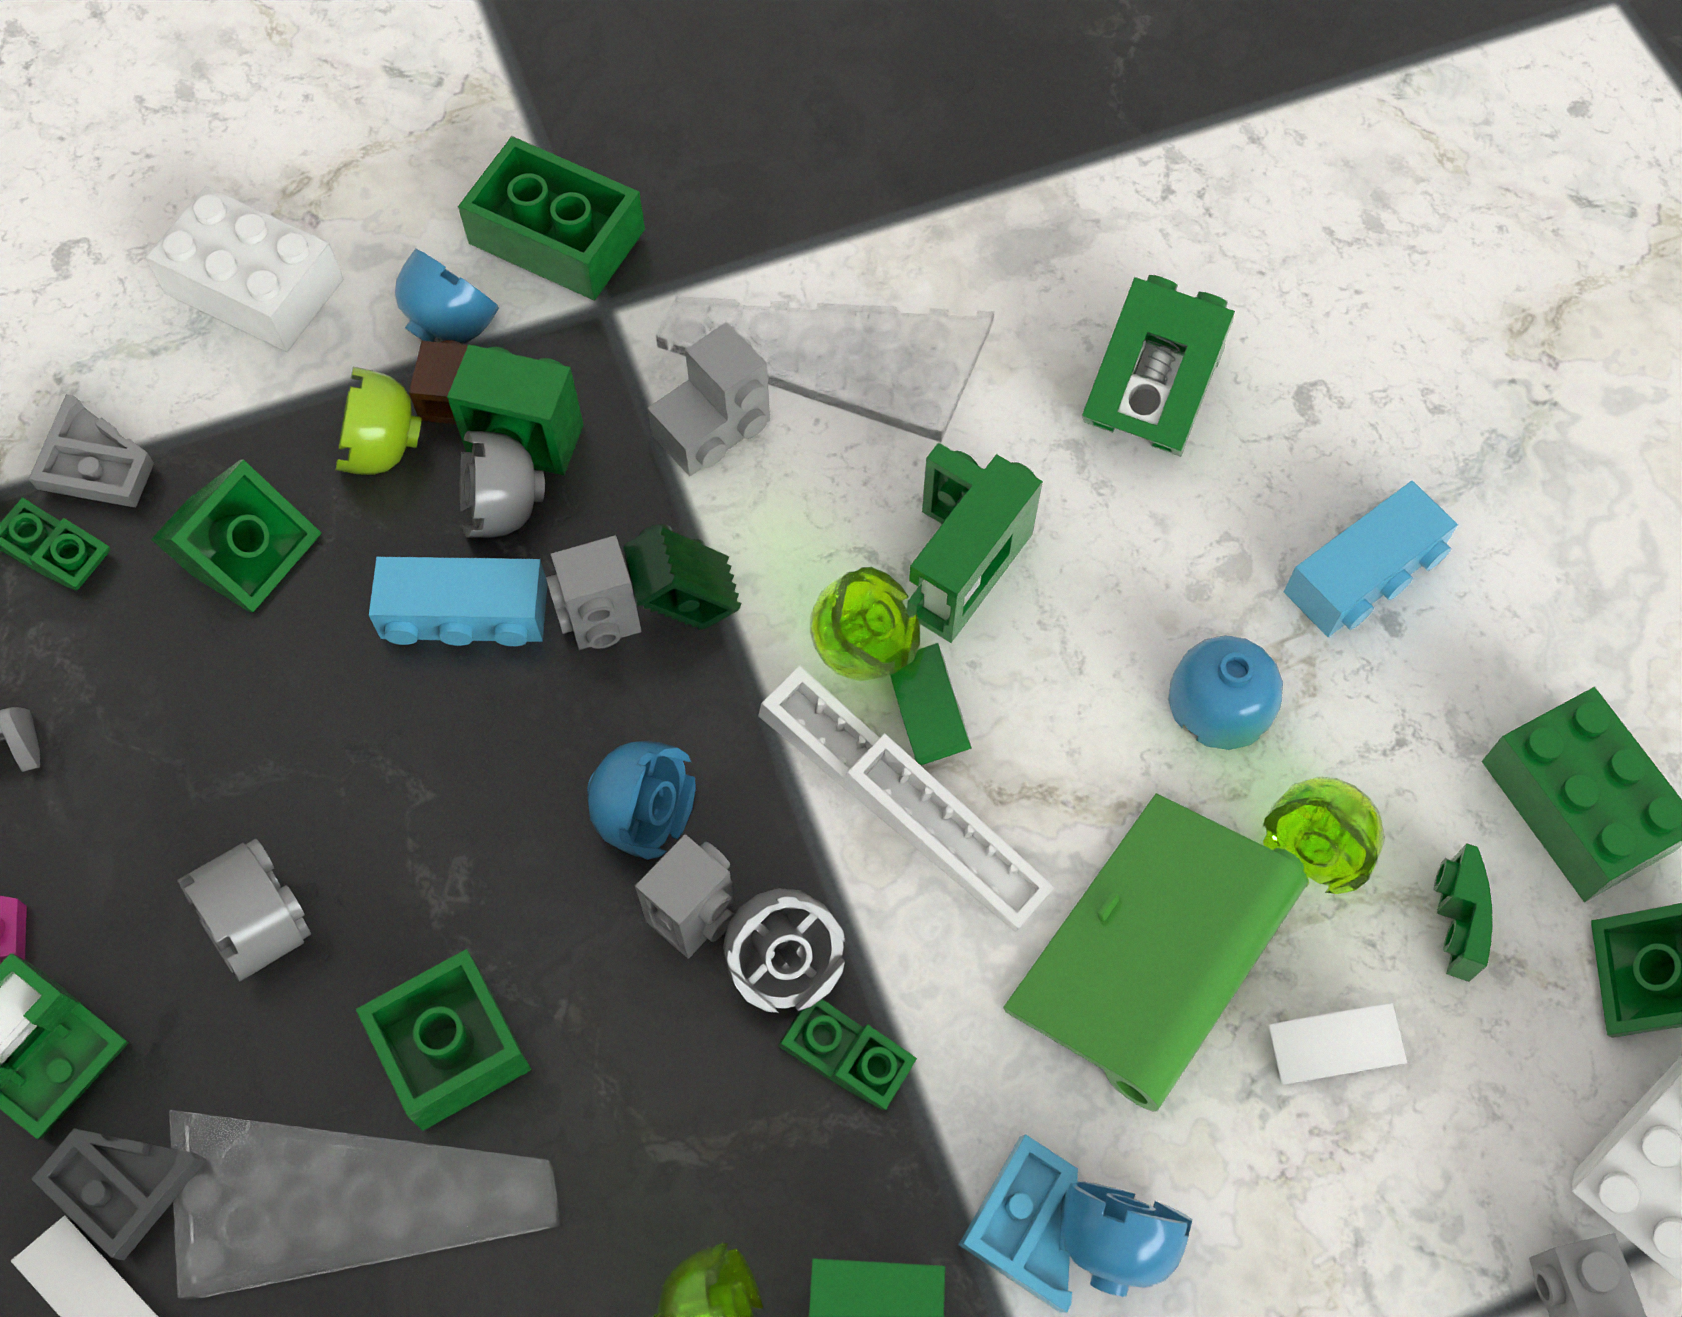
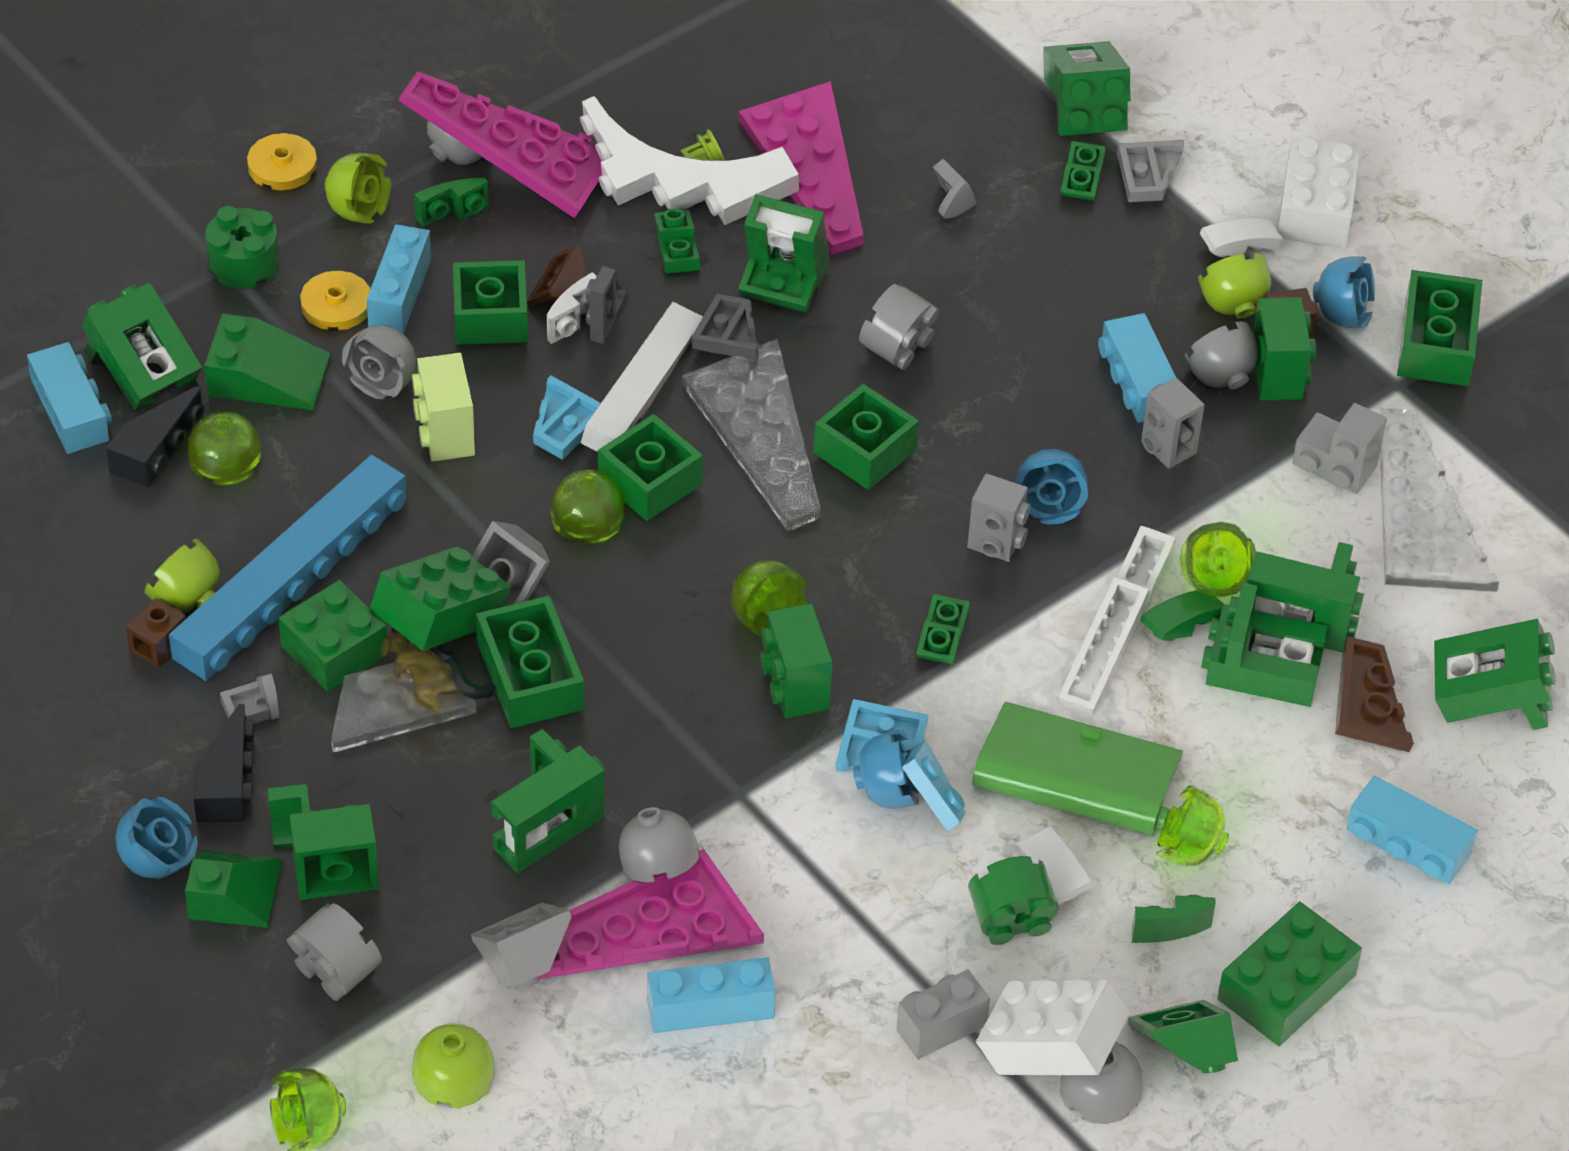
camera: 70 degrees right, 15 degrees down
(237, 536) = (1129, 252): green slope -> none
(273, 390) = (1235, 235): none -> white slope
(680, 577) = (1204, 460): dark green brick -> none
(784, 950) = (986, 570): light grey cylinder -> none
(1015, 652) = (1263, 652): none -> green brick
(1137, 533) = (1367, 697): none -> reddish brown wing
(1167, 1176) = (934, 786): none -> medium azure wing
(1226, 692) = (1272, 770): dark azure cylinder -> none
(1418, 1129) = (1013, 899): none -> green brick

